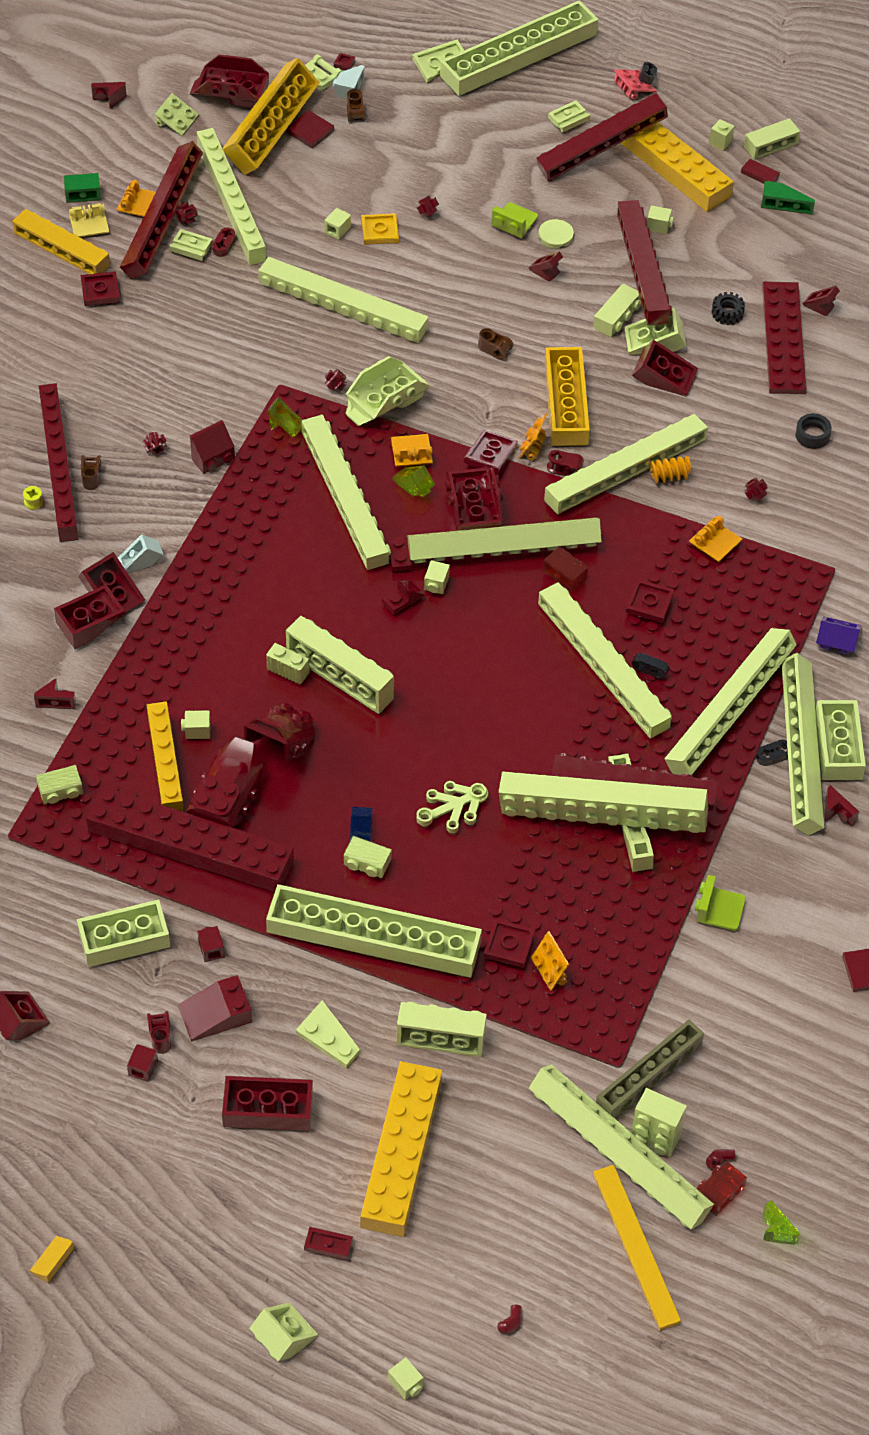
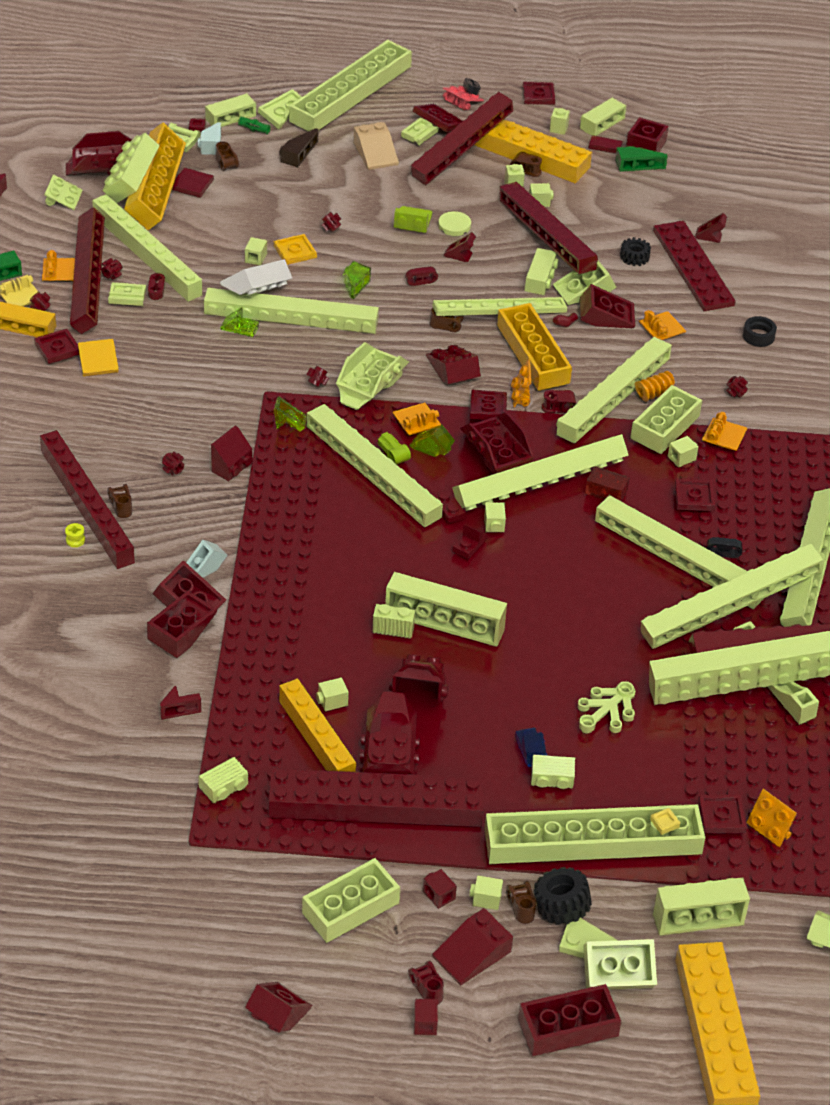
camera: 20 degrees left, 10 degrees down
(102, 236) = (40, 301): none -> dark red gear
(132, 310) = (98, 357): none -> yellow tile
(243, 104) = (130, 167): none -> yellowish green brick
(252, 959) = (486, 892): none -> yellowish green brick
(281, 974) = (522, 902): none -> reddish brown piece
(287, 304) = (237, 324): none -> clear neon green slope
(317, 983) = (562, 895): none -> black tyre
(321, 258) = (259, 278): none -> white slope
(337, 1064) = (620, 964): none -> yellowish green brick
(372, 481) = (394, 450): none -> lime piece
(383, 52) = (230, 110): none -> yellowish green brick
(401, 73) = (246, 122): none -> green pin
(425, 277) = (356, 278): none -> clear neon green slope
(433, 111) = (298, 148): none -> dark brown slope
(440, 938) = (665, 821): none -> light yellow tile
(478, 396) = (454, 364): none -> dark red slope
(492, 288) = (421, 276): none -> dark red beam
(514, 125) = (375, 145): none -> tan slope
(543, 340) = (491, 306): none -> yellowish green tile
(595, 102) = (437, 116): none -> dark red tile
(617, 373) = (565, 321): none -> dark red arm
(625, 721) = (731, 596): none -> yellowish green brick
(642, 192) = (514, 173): none -> yellowish green brick
(659, 511) = (666, 419): none -> yellowish green brick
(661, 550) = (683, 451): none -> yellowish green brick
(663, 180) = (529, 163): none -> reddish brown piece
(714, 400) = (661, 325): none -> light orange hinge
(718, 94) = (539, 93): none -> dark red tile
(805, 173) = (647, 135): none -> dark red brick

